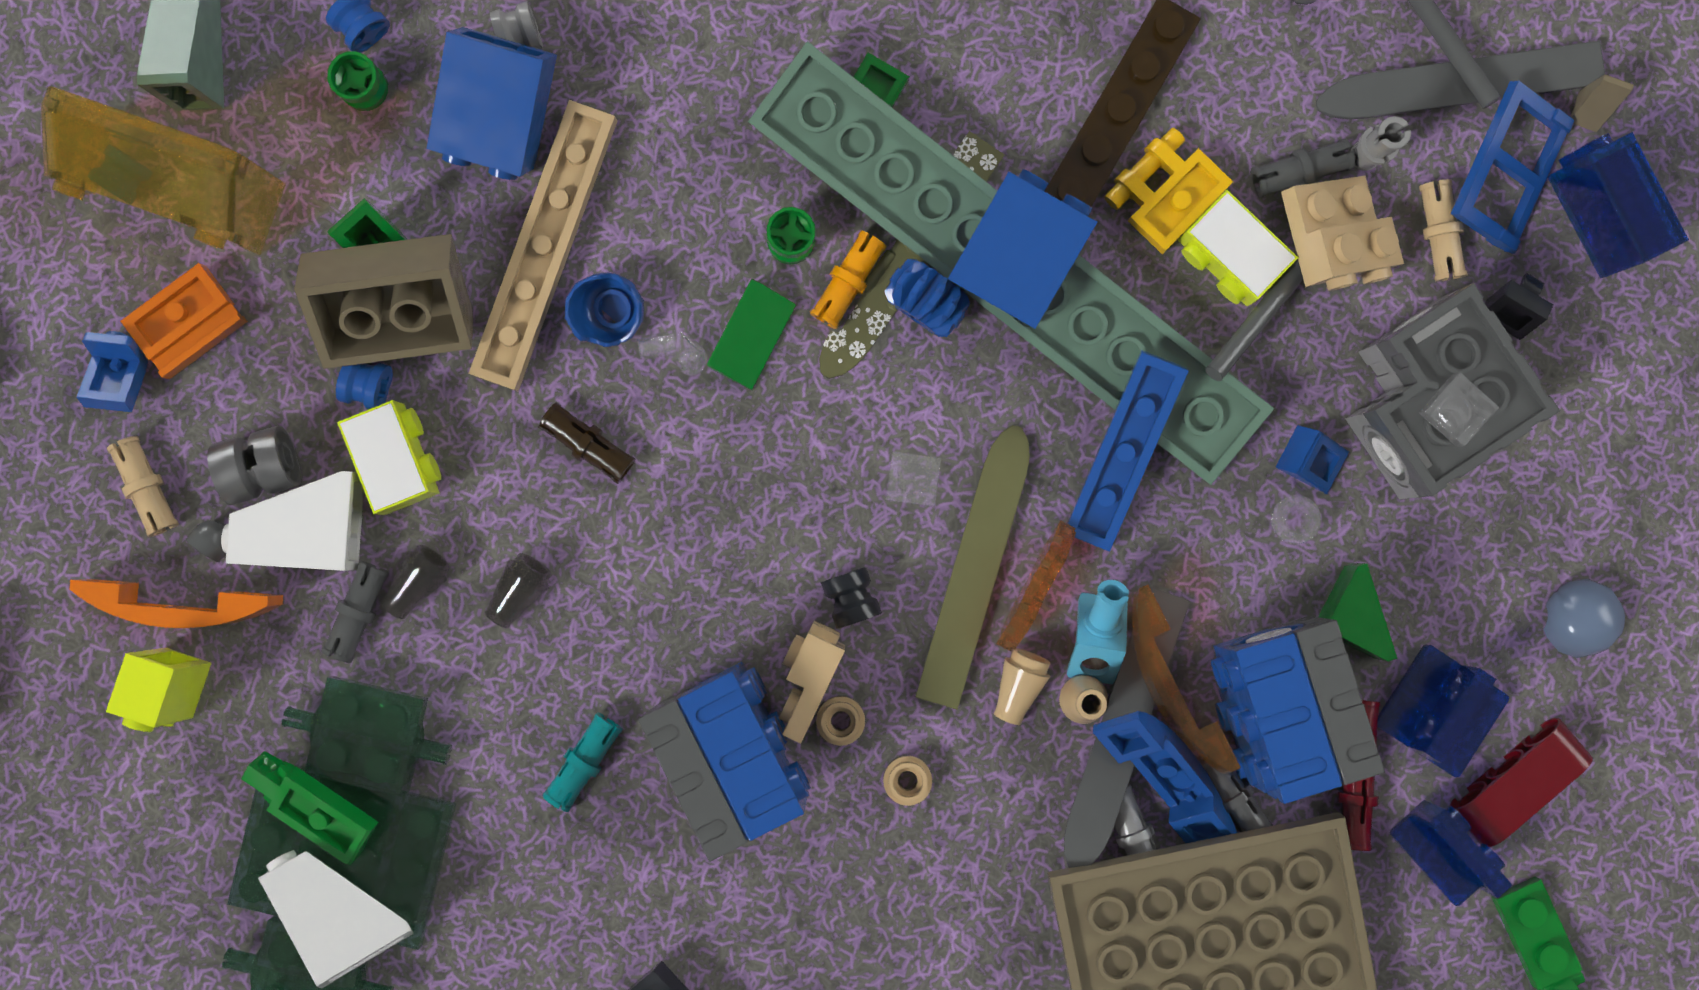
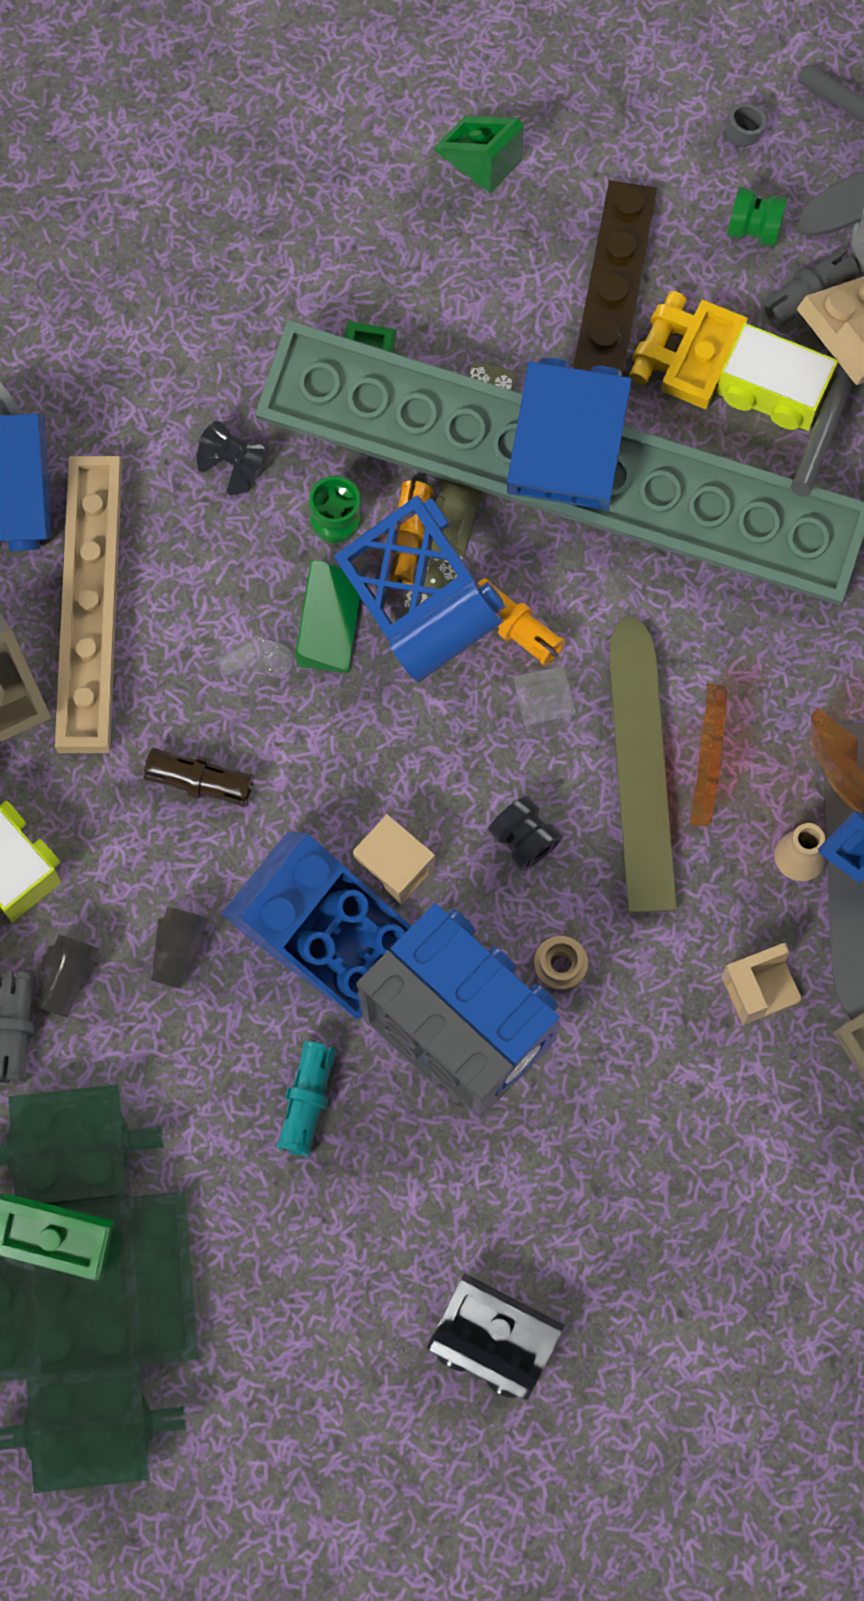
camera: 20 degrees left, 15 degrees down
(329, 916) = (96, 1335): white slope -> none
(612, 295) = (175, 626): blue hair -> none
(646, 614) = (316, 918): none -> blue slope
(709, 133) = (218, 445): none -> black piece
(727, 581) = (395, 859): none -> tan panel
(812, 667) = (510, 906): tan plate -> none
(848, 382) = (445, 621): none -> blue piece
(907, 796) = (653, 982): tan plate -> none
(914, 398) = (527, 630): none -> light orange pin
(927, 297) = (492, 518): blue gear -> none
(1004, 803) = (761, 984): none -> tan panel
(1021, 683) = (731, 860): tan cone -> none
(1101, 631) = (790, 775): medium azure bracket -> none
(1126, 449) = (745, 593): blue plate -> none
(1282, 82) = (757, 217): none -> green wheel

